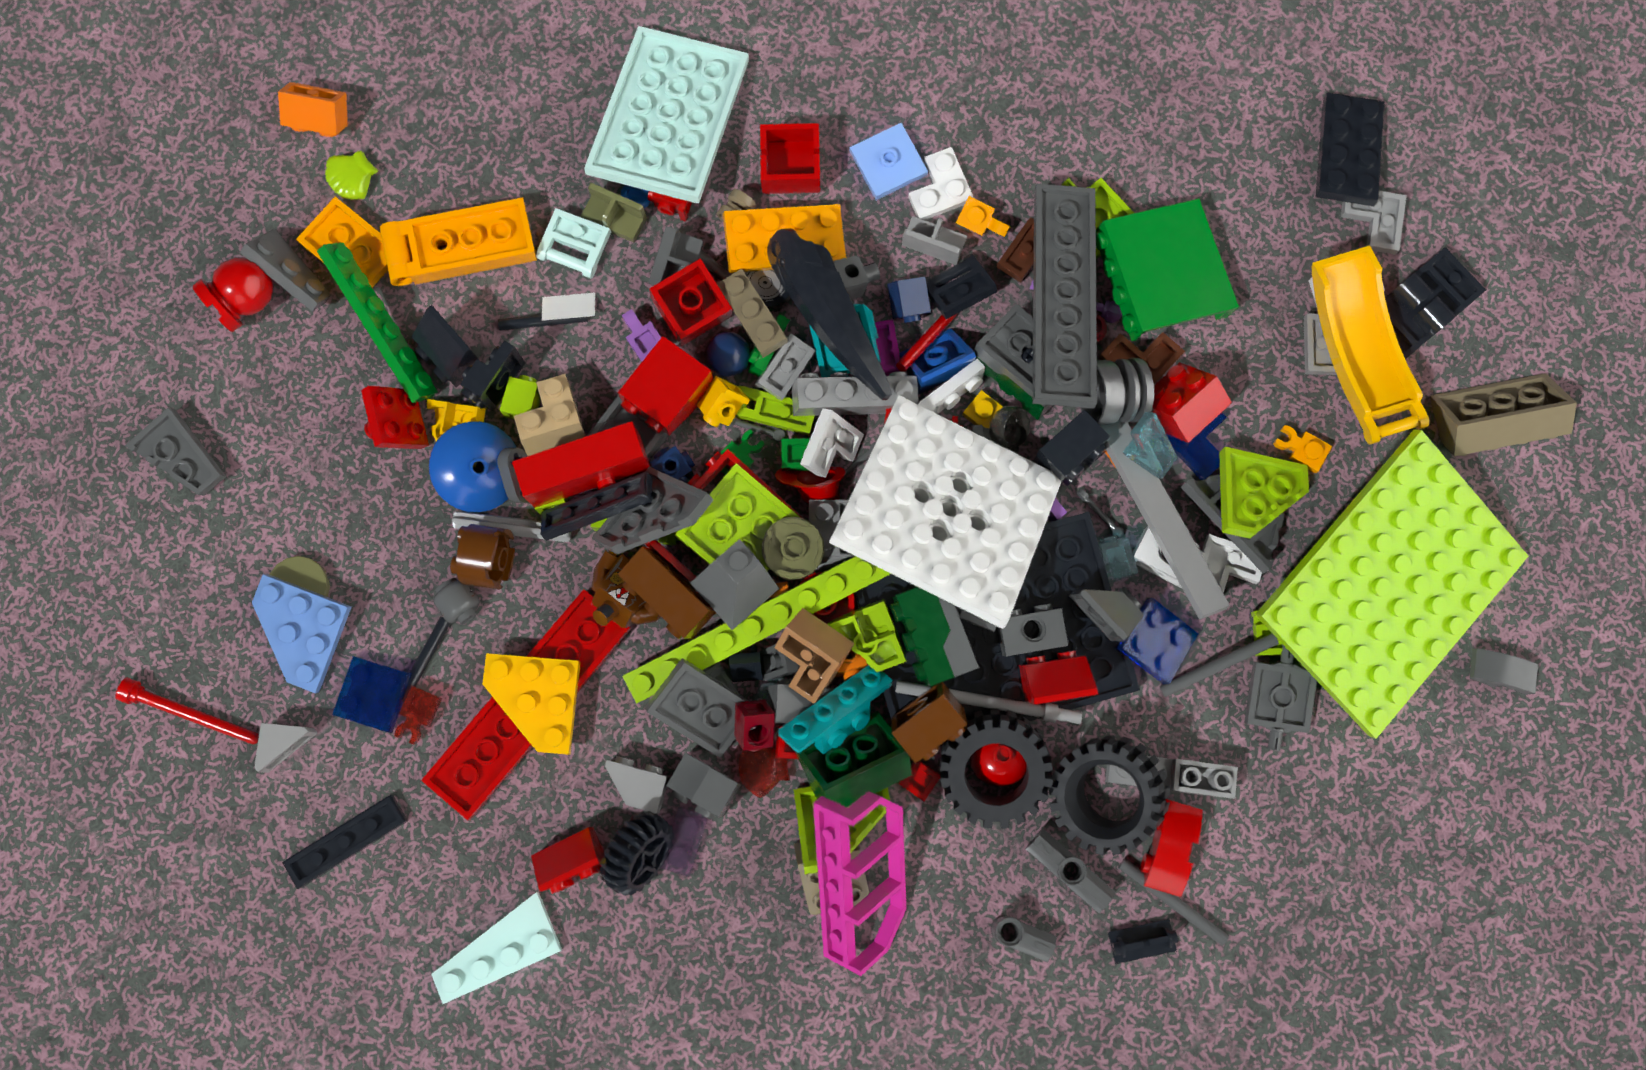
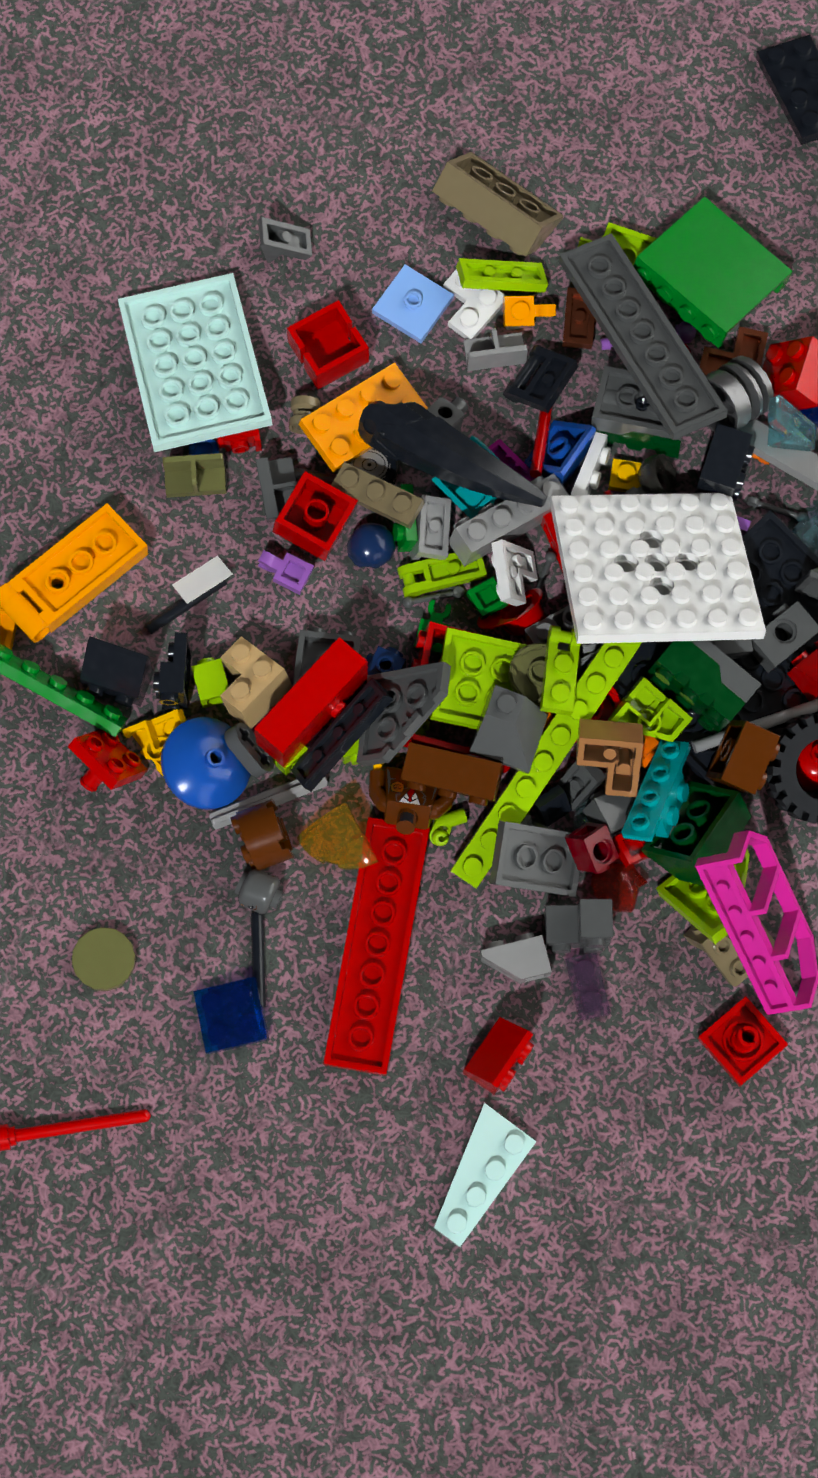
camera: 35 degrees left, 5 degrees down
(278, 743) = (173, 1102): light grey slope -> none
(300, 629) = (131, 993): medium blue plate -> none
(345, 841) = (284, 1158): black tile -> none
(418, 709) = (282, 1004): clear red plate -> none
(536, 697) = (384, 932): yellow plate -> none
(545, 595) = (338, 840): none -> clear yellow brick
(577, 234) = (173, 511): light aqua plate -> none
(636, 853) = (556, 1013): black gear -> none
(644, 632) = (442, 827): none -> lime arm
(665, 387) = (340, 598): red slope -> none
(721, 402) = (394, 588): yellow brick -> none
(788, 967) = (742, 1041): none -> red plate
(806, 559) = (560, 672): none -> lime plate
(807, 45) = (284, 239): none -> dark grey slope
(909, 299) = (505, 412): dark blue brick -> none
(921, 781) = (762, 819): red tile -> none
(977, 176) = (501, 275): none -> lime plate
(1012, 109) = (496, 203): none -> dark tan slope

